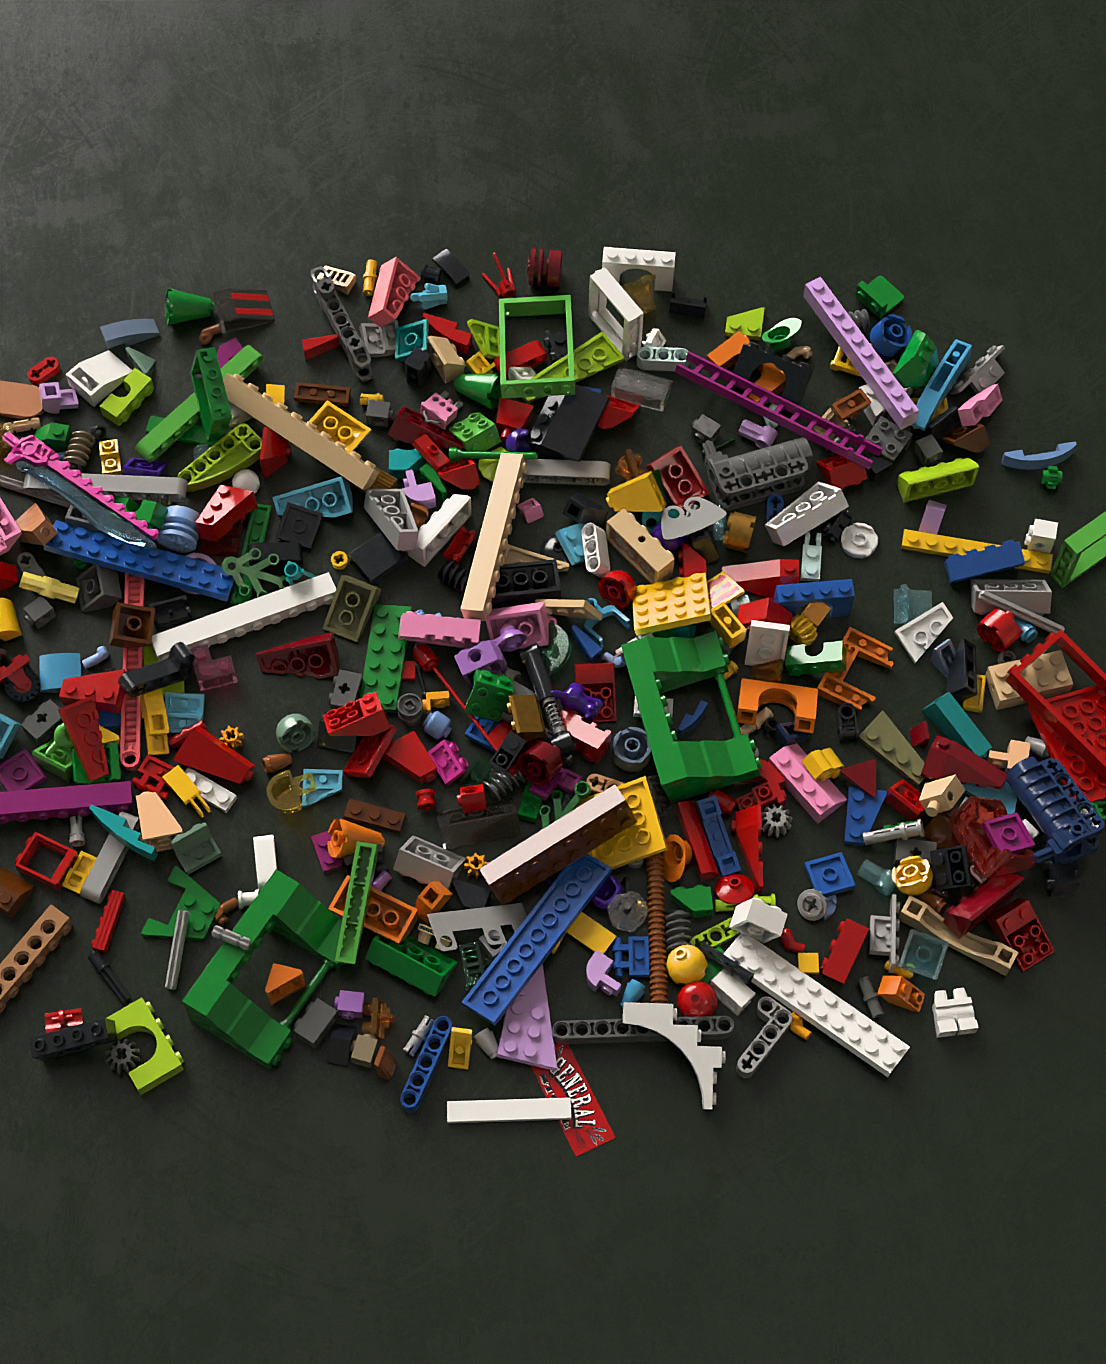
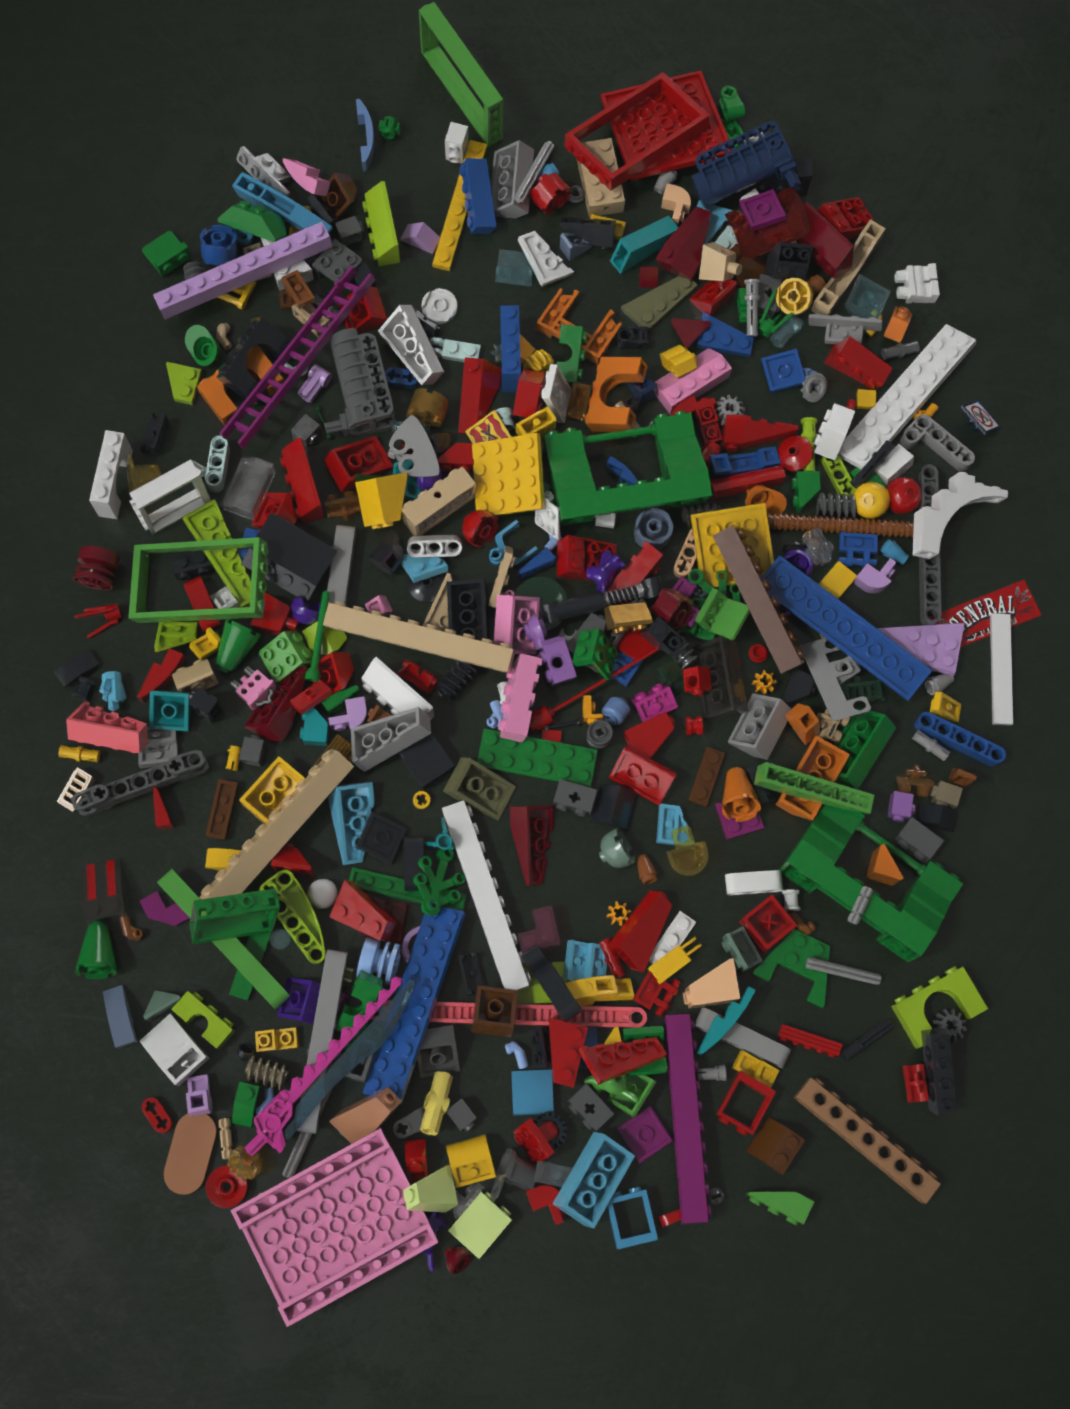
camera: 90 degrees left, 10 degrees up
(223, 874) = (767, 923): none -> red brick
(358, 718) = (614, 783): red slope -> none
(541, 811) = (722, 615): none -> bright green bracket
(651, 431) = (302, 482): none -> red slope
(798, 1082) = (980, 417): none -> piece
(878, 855) = (769, 326): none -> green plant

